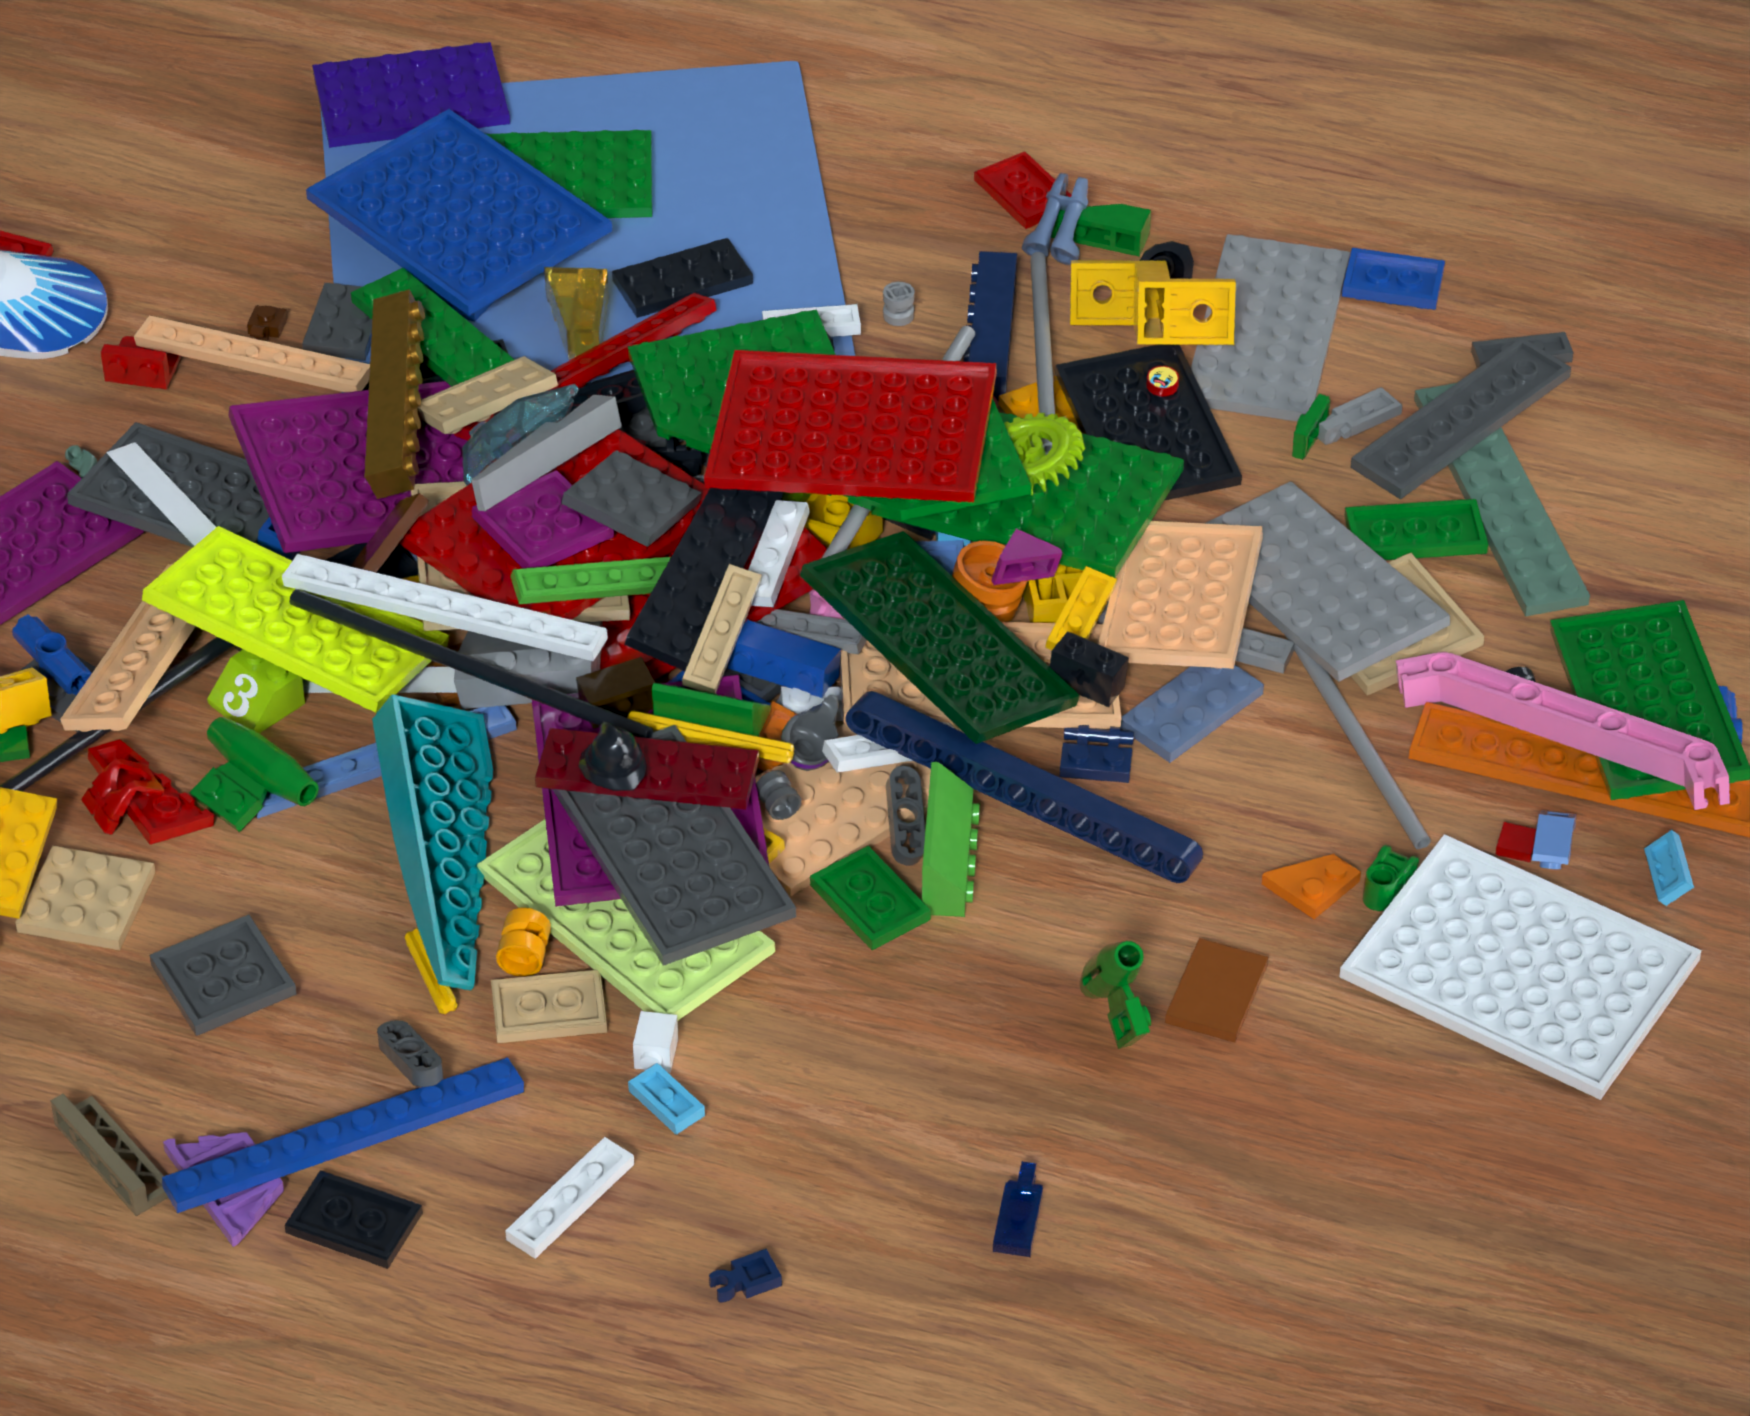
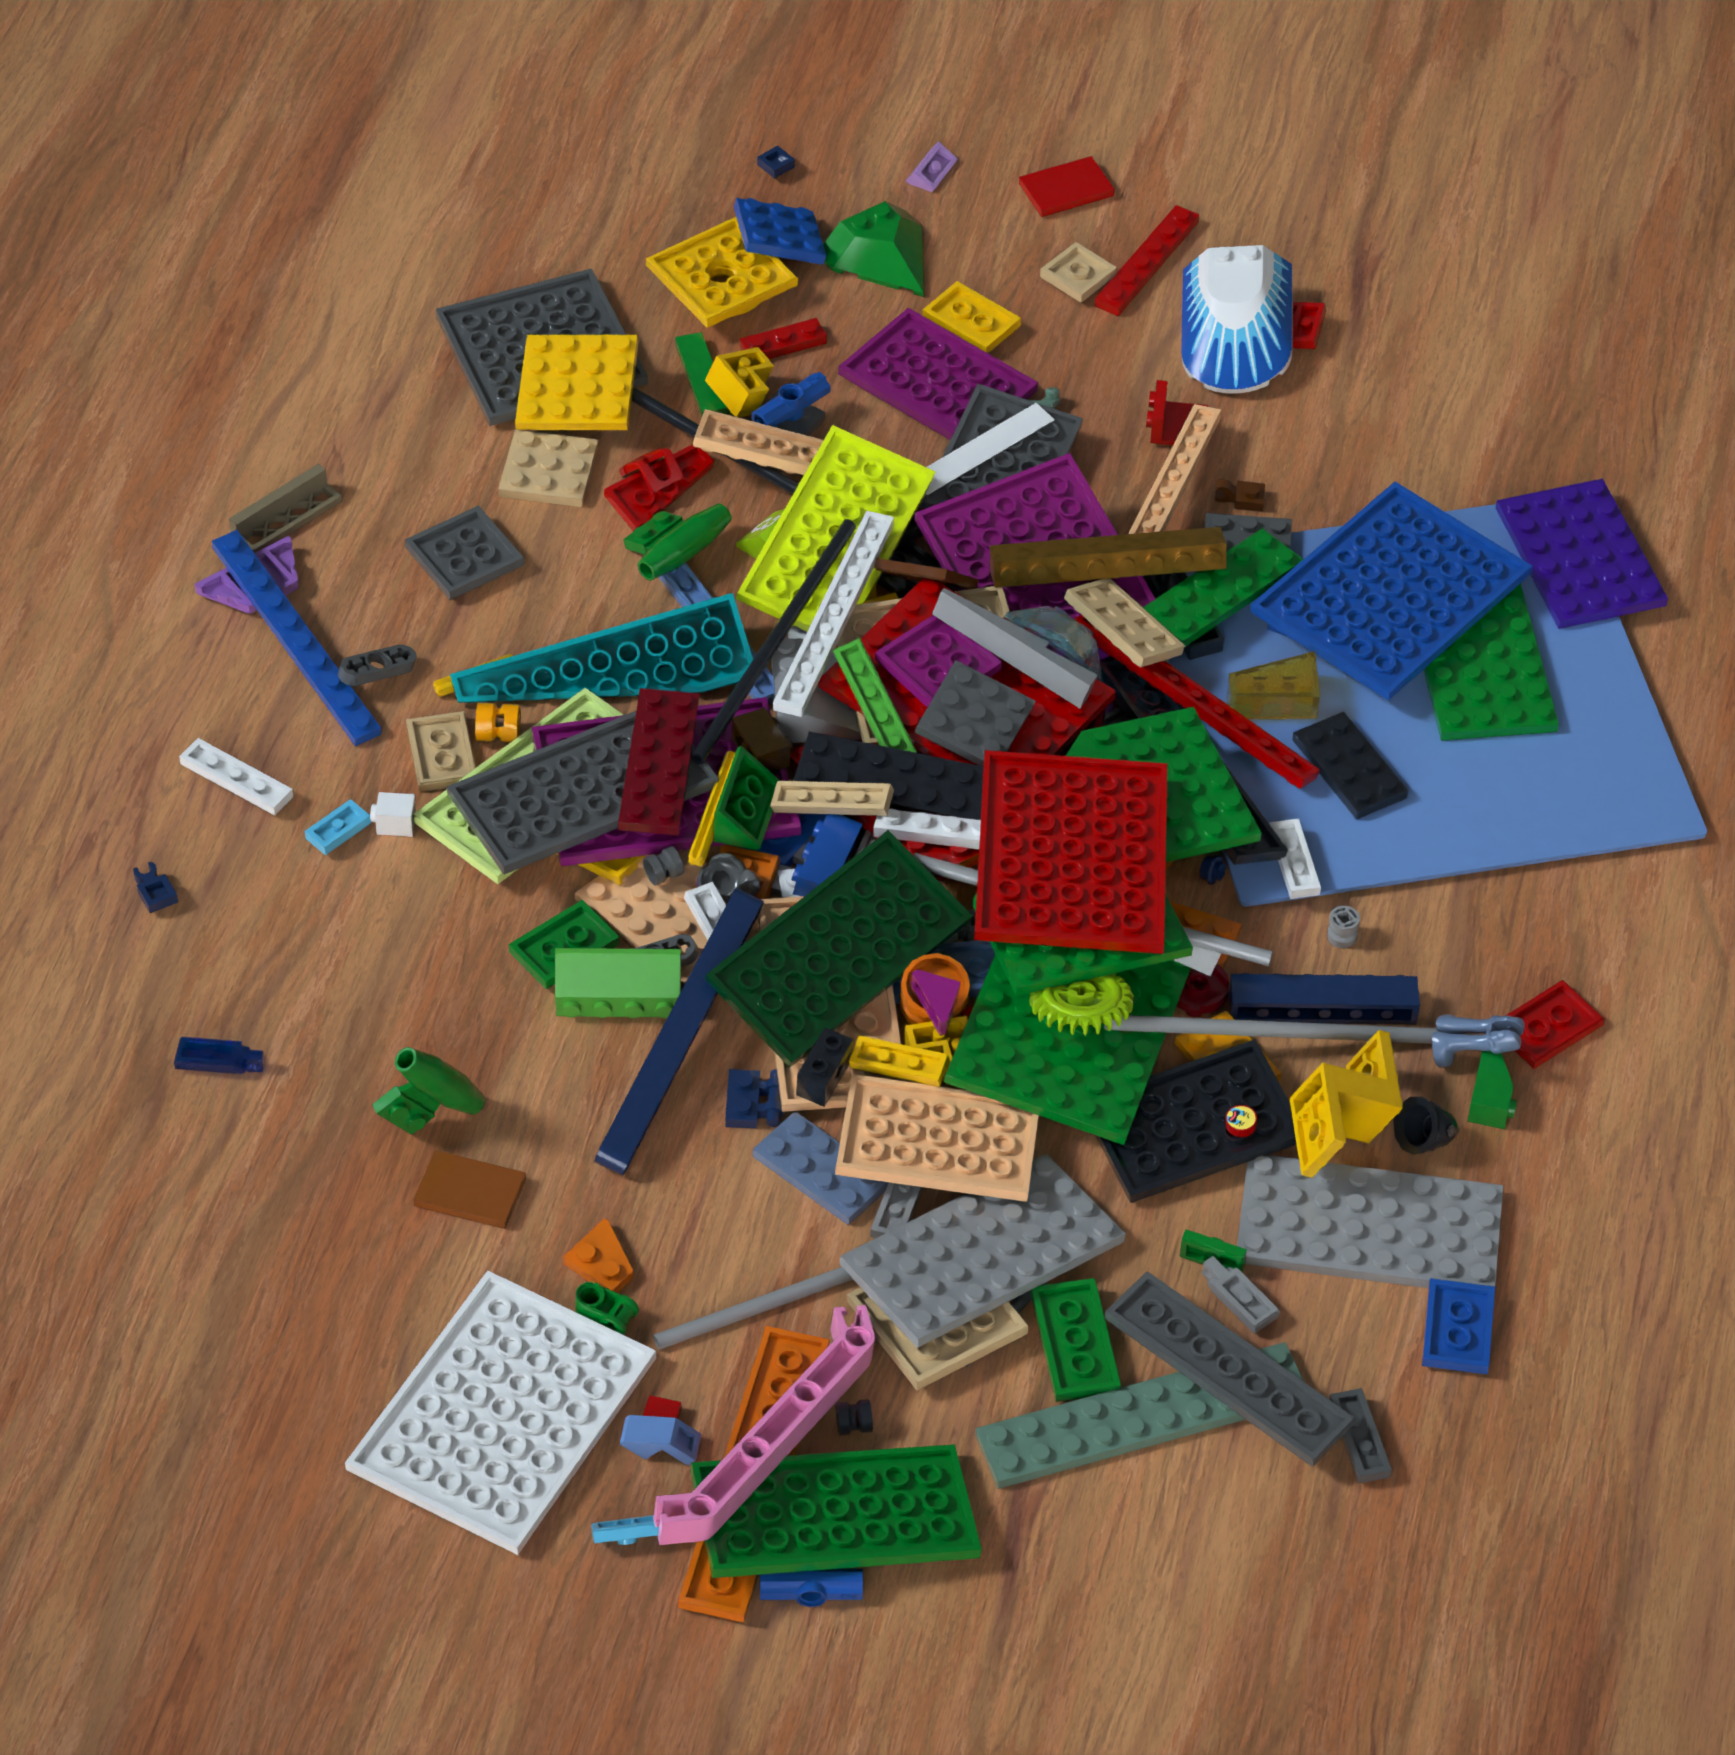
camera: 85 degrees right, 5 degrees up
(353, 1219) = (222, 657): black tile -> none
(613, 759) = (648, 726): black piece -> none

